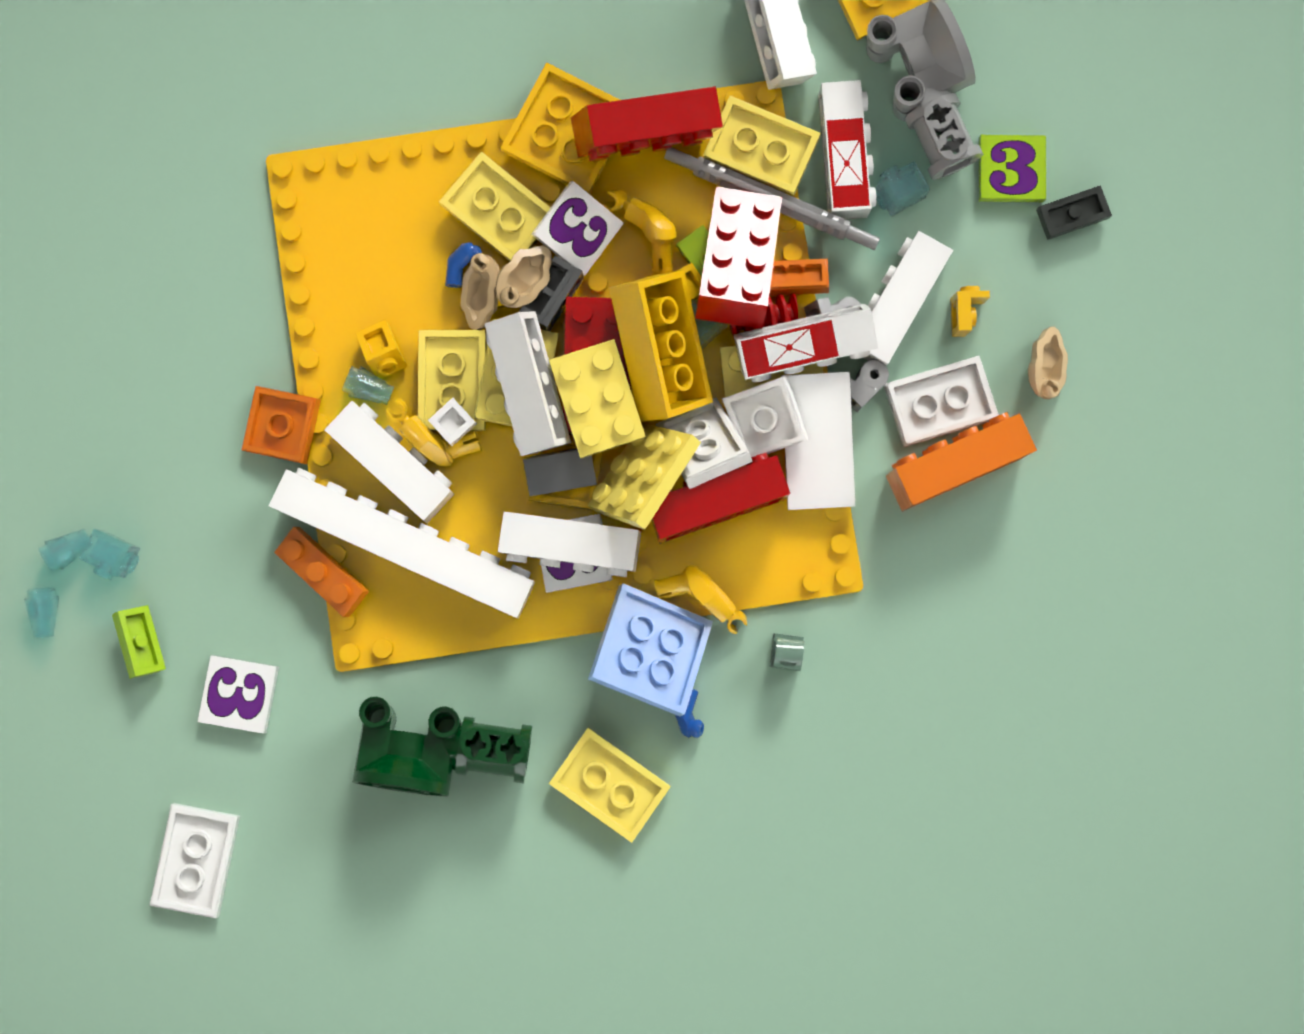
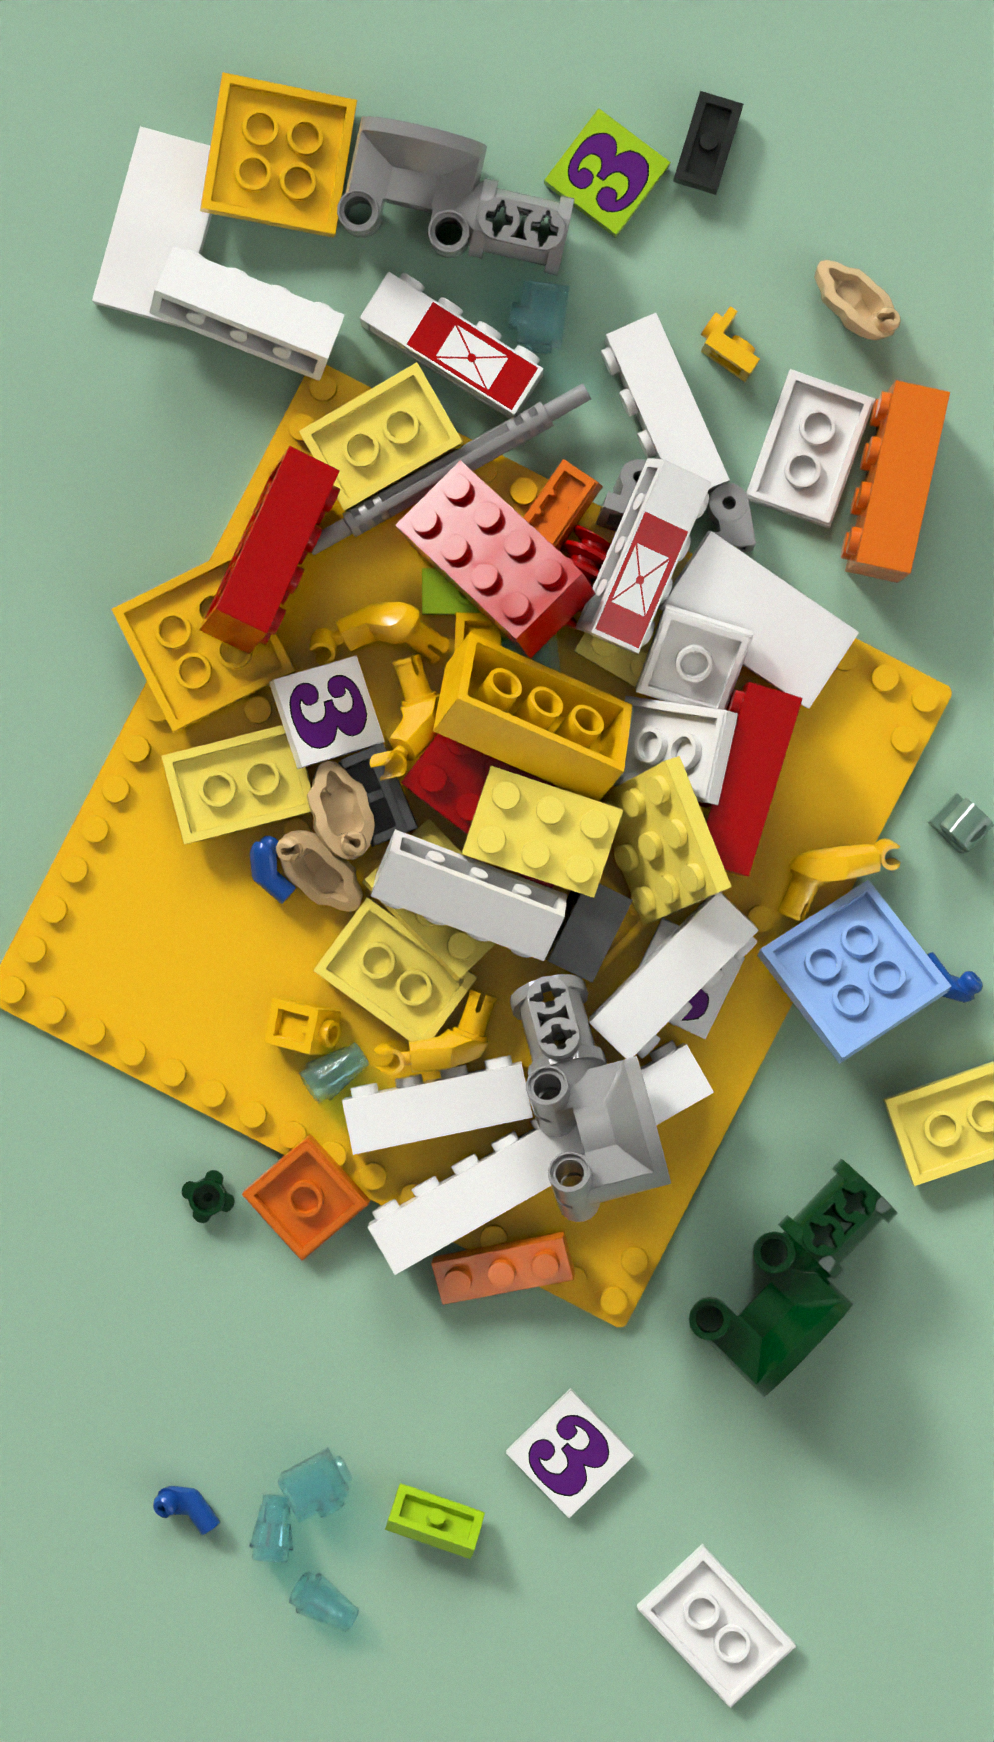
camera: 55 degrees left, 5 degrees up
(46, 485) = (186, 1501): none -> blue arm
(236, 359) = (220, 1199): none -> dark green plate
(452, 422) = (446, 1007): white plate -> none
(456, 542) = (575, 1086): none -> light grey piece
(598, 283) = (418, 719): none -> yellow arm

